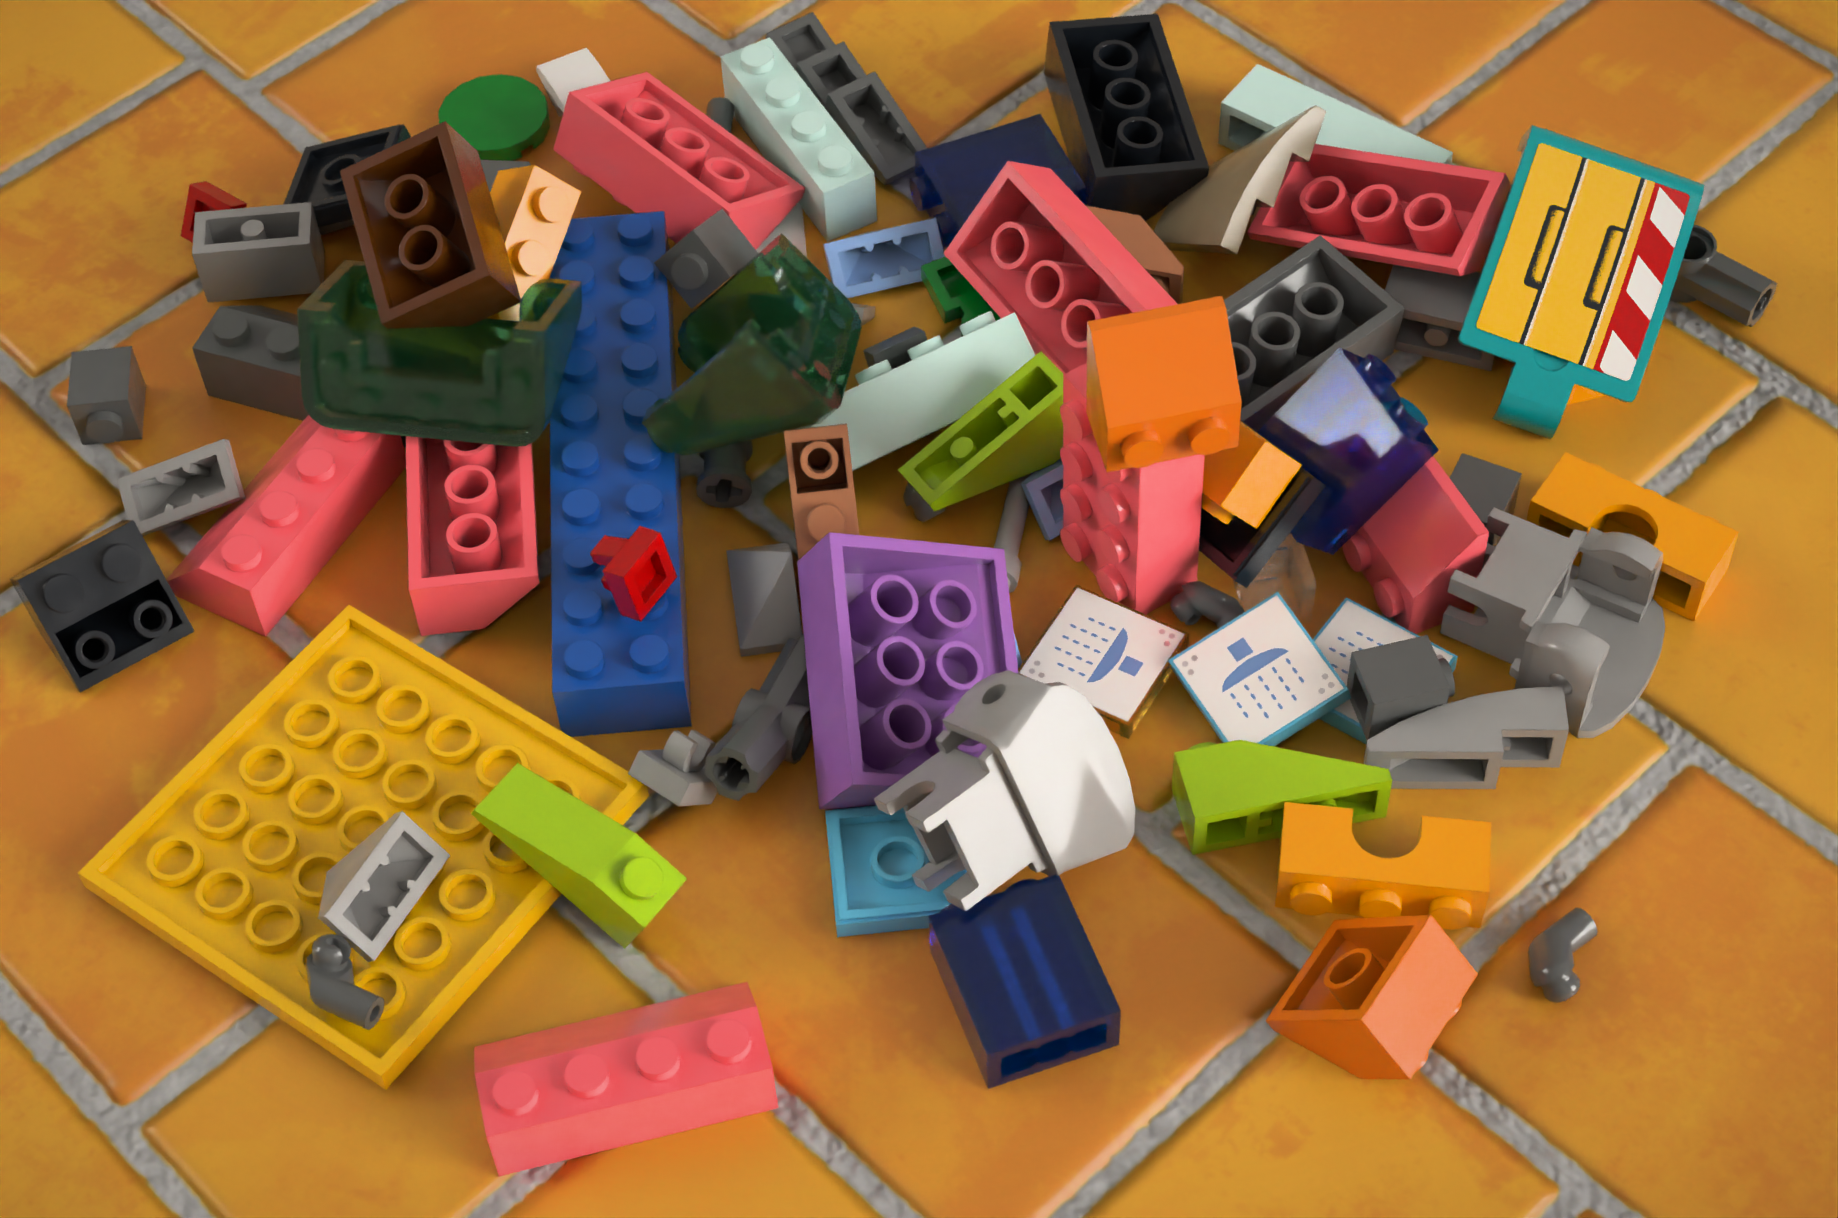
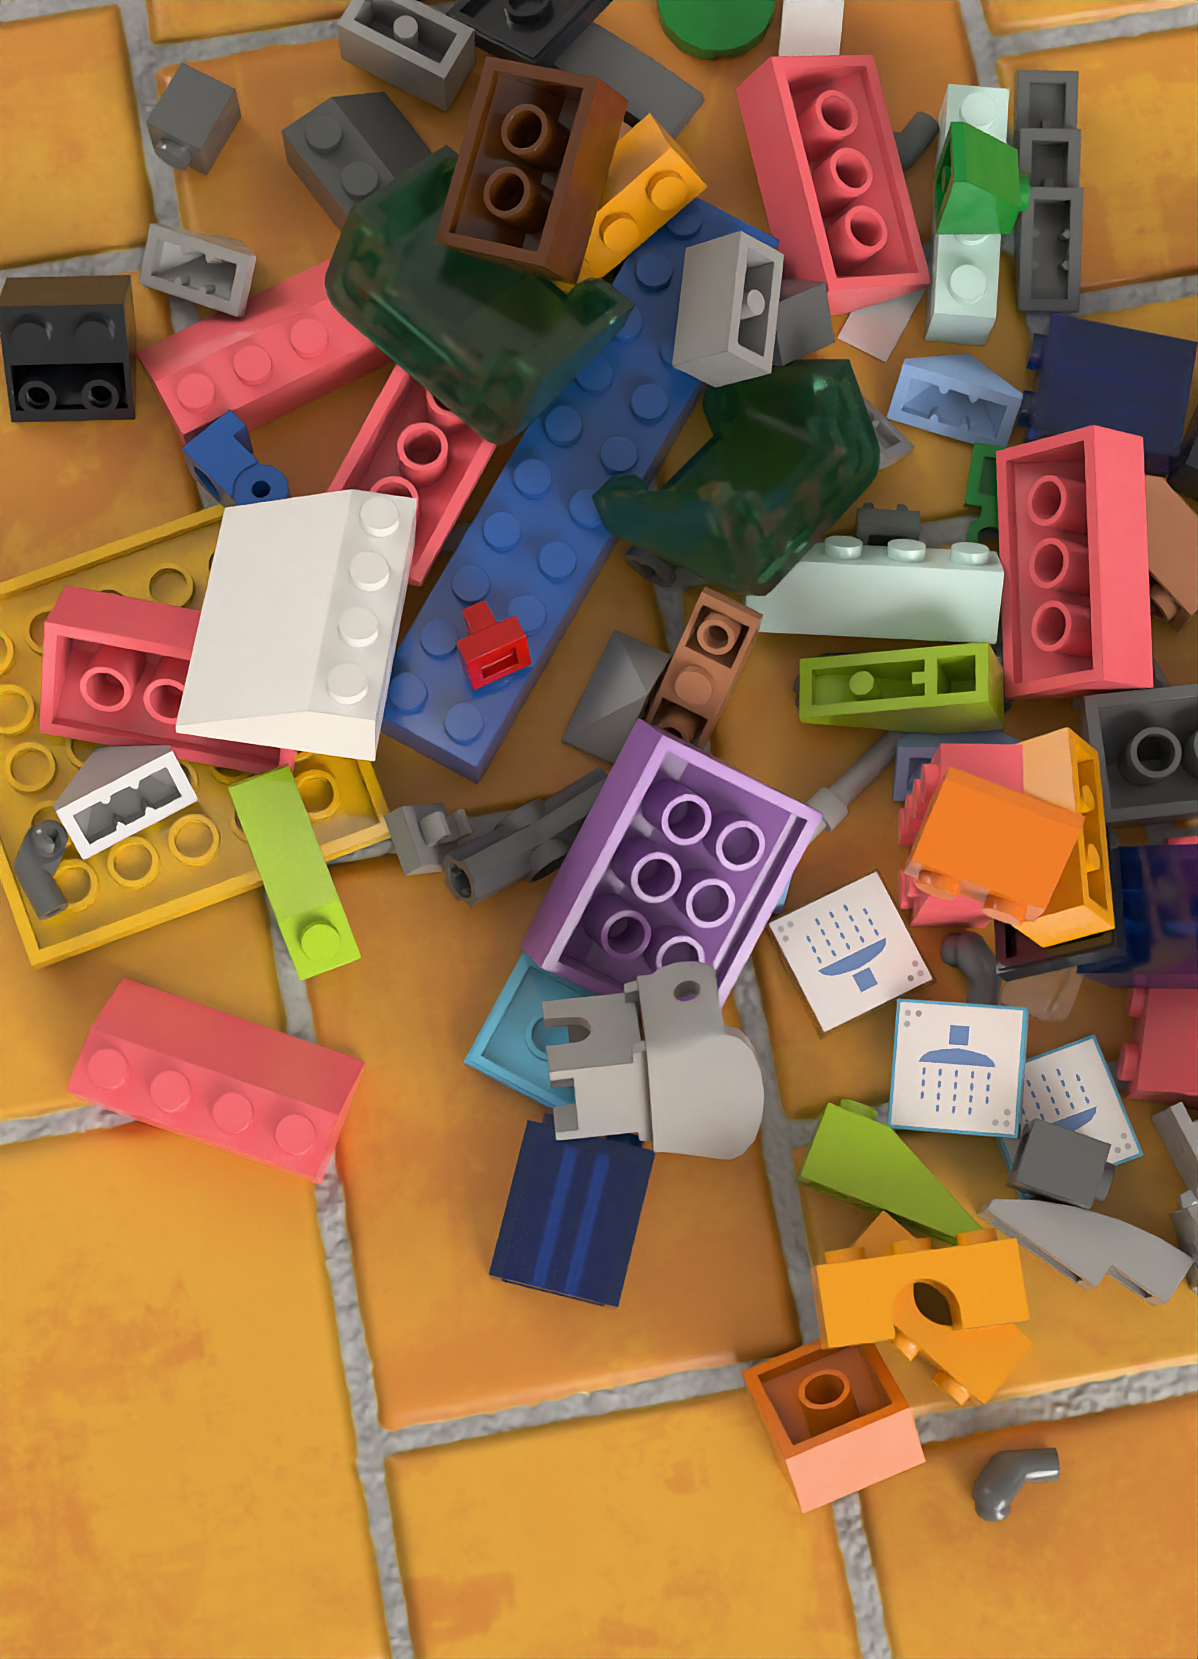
camera: 25 degrees right, 25 degrees up
(322, 598) = (226, 468): none -> blue leg
(339, 775) = (120, 675): none -> coral slope
(459, 628) = (302, 623): none -> white slope
(659, 249) = (728, 309): none -> light grey brick
(792, 80) = (978, 184): none -> green slope
(1398, 790) = (976, 1277): none -> light orange arch

